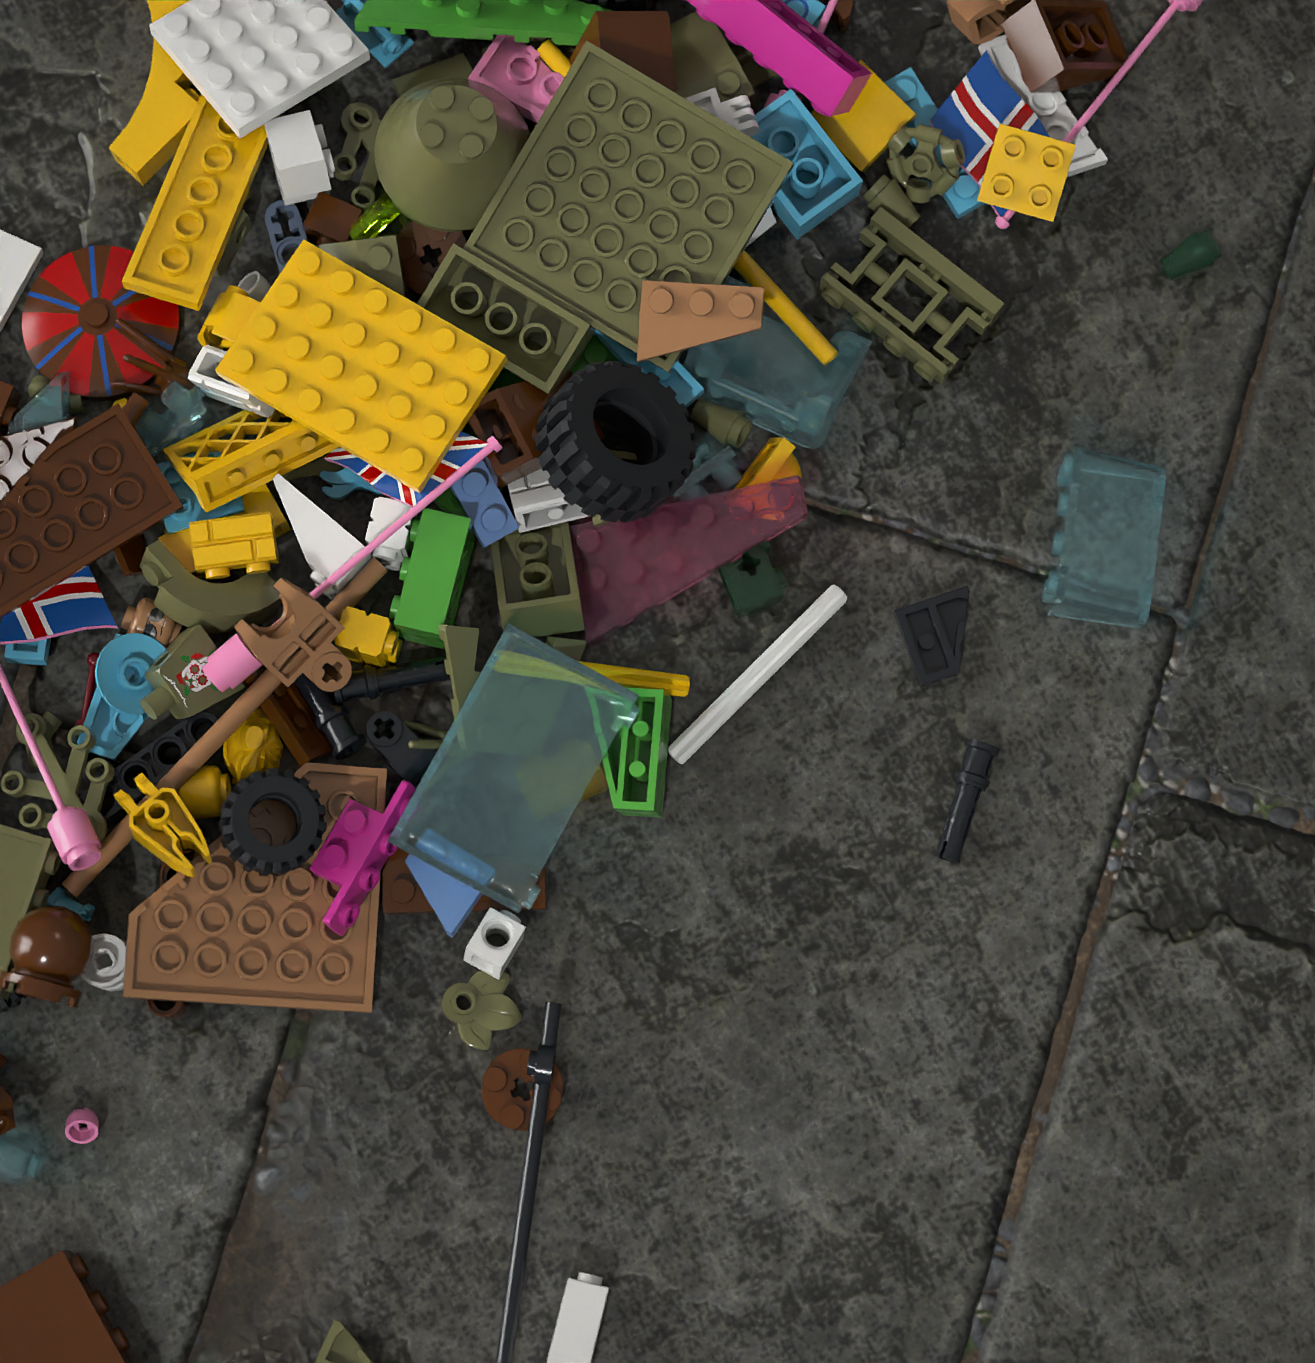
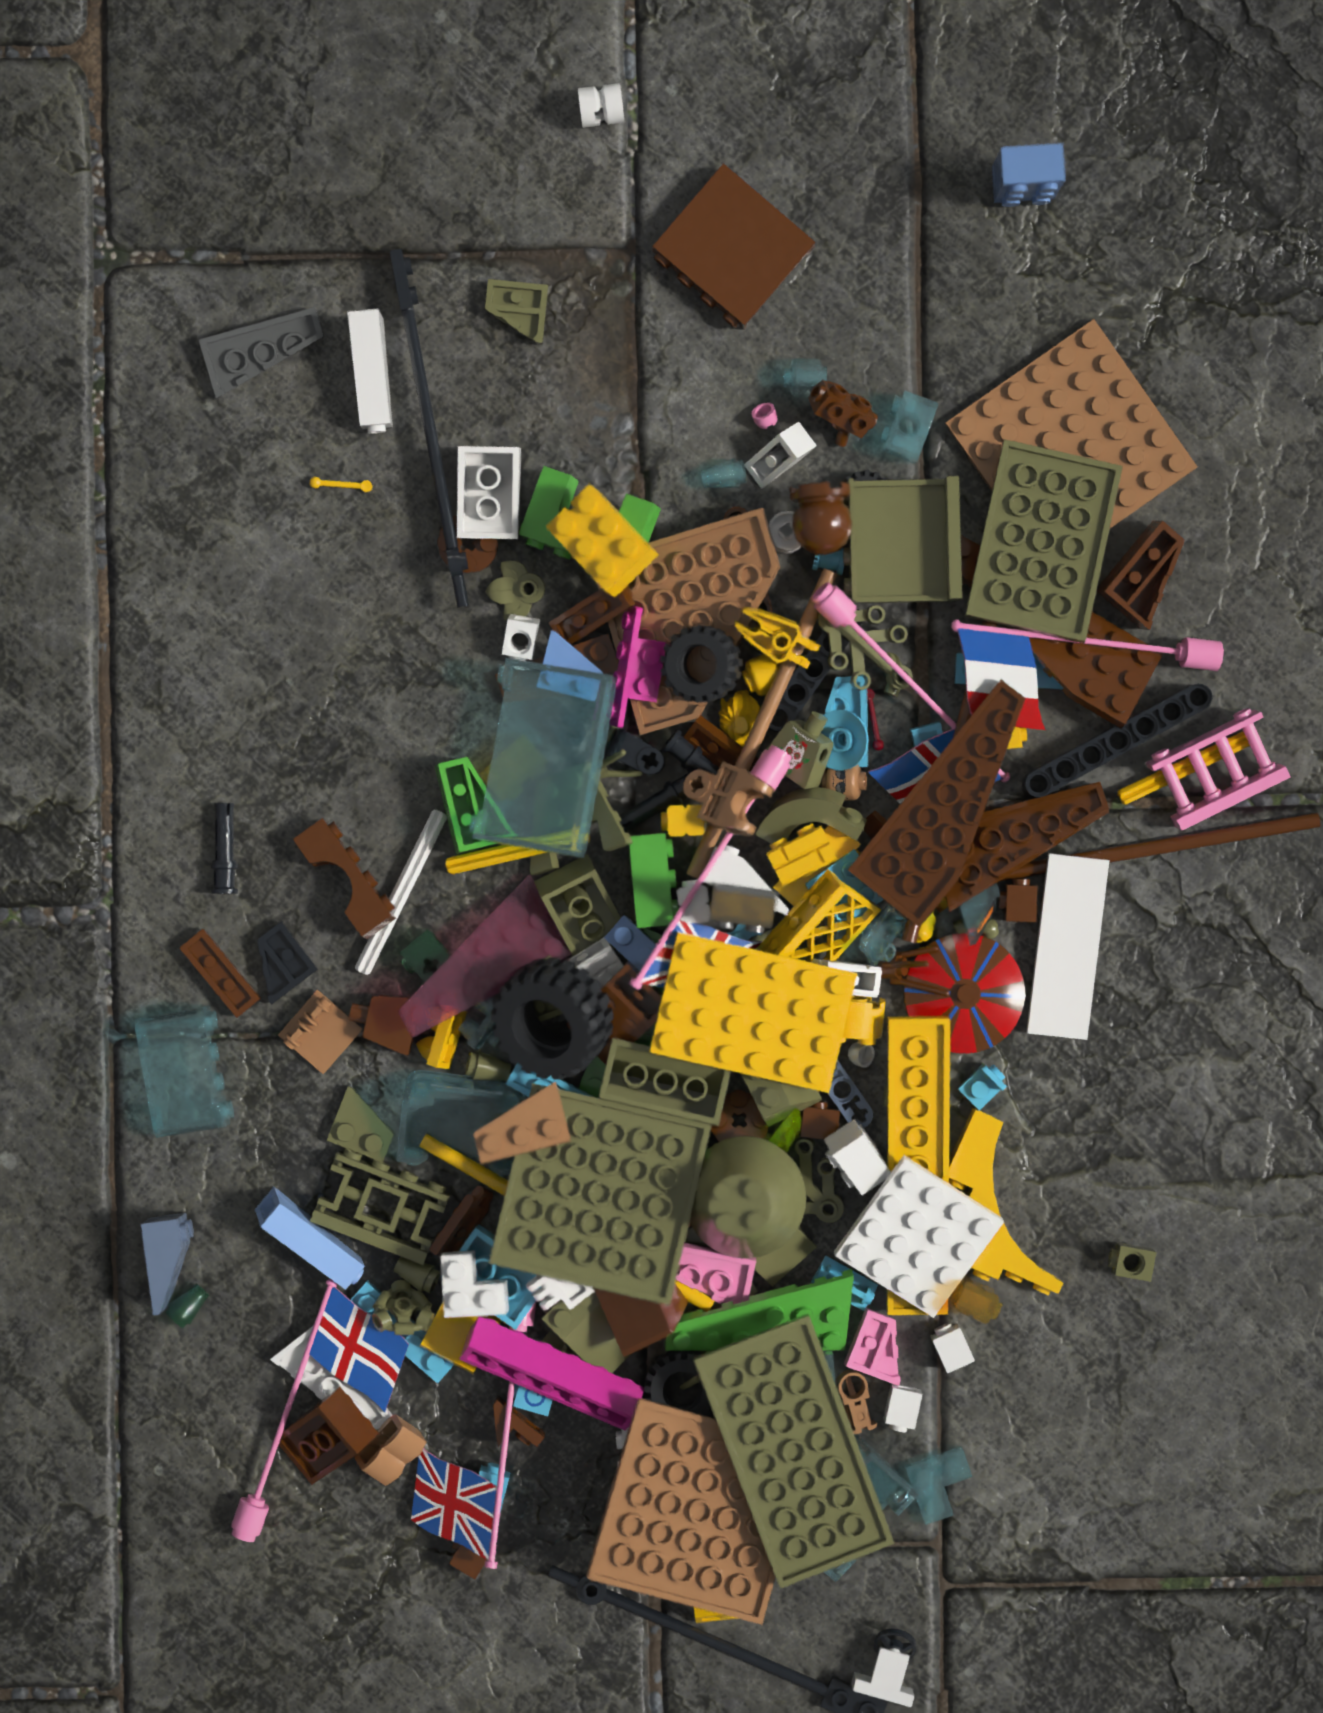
camera: 160 degrees right, 10 degrees up
(80, 1066) = (780, 454): none -> white slope
(119, 205) = (982, 1085): none -> medium azure bracket
(161, 1065) = (725, 475): none -> clear light blue cone
(323, 495) = (742, 906): none -> dark grey slope
(341, 1020) = (602, 540): none -> yellow piece
(389, 941) = (591, 614): none -> reddish brown hinge
(411, 1074) = (555, 492): none -> bright green arch
(470, 1143) = (488, 492): none -> white slope
(630, 1210) = (365, 486): none -> yellow hinge
(814, 245) = (463, 1221): none -> reddish brown hinge
(830, 520) = (383, 1022): none -> reddish brown torso
(834, 142) = (465, 1294): none -> white brick
(835, 760) = (367, 908): none -> reddish brown arch
(905, 401) = (360, 1128): none -> olive wing
(917, 534) = (320, 1032): none -> medium nougat hinge
(1020, 647) = (220, 973): none -> reddish brown plate
(1026, 172) = (324, 1324): yellow hinge -> none
(1030, 303) = (309, 1240): none -> light blue slope
(1193, 336) = (165, 1248): none -> sand blue slope

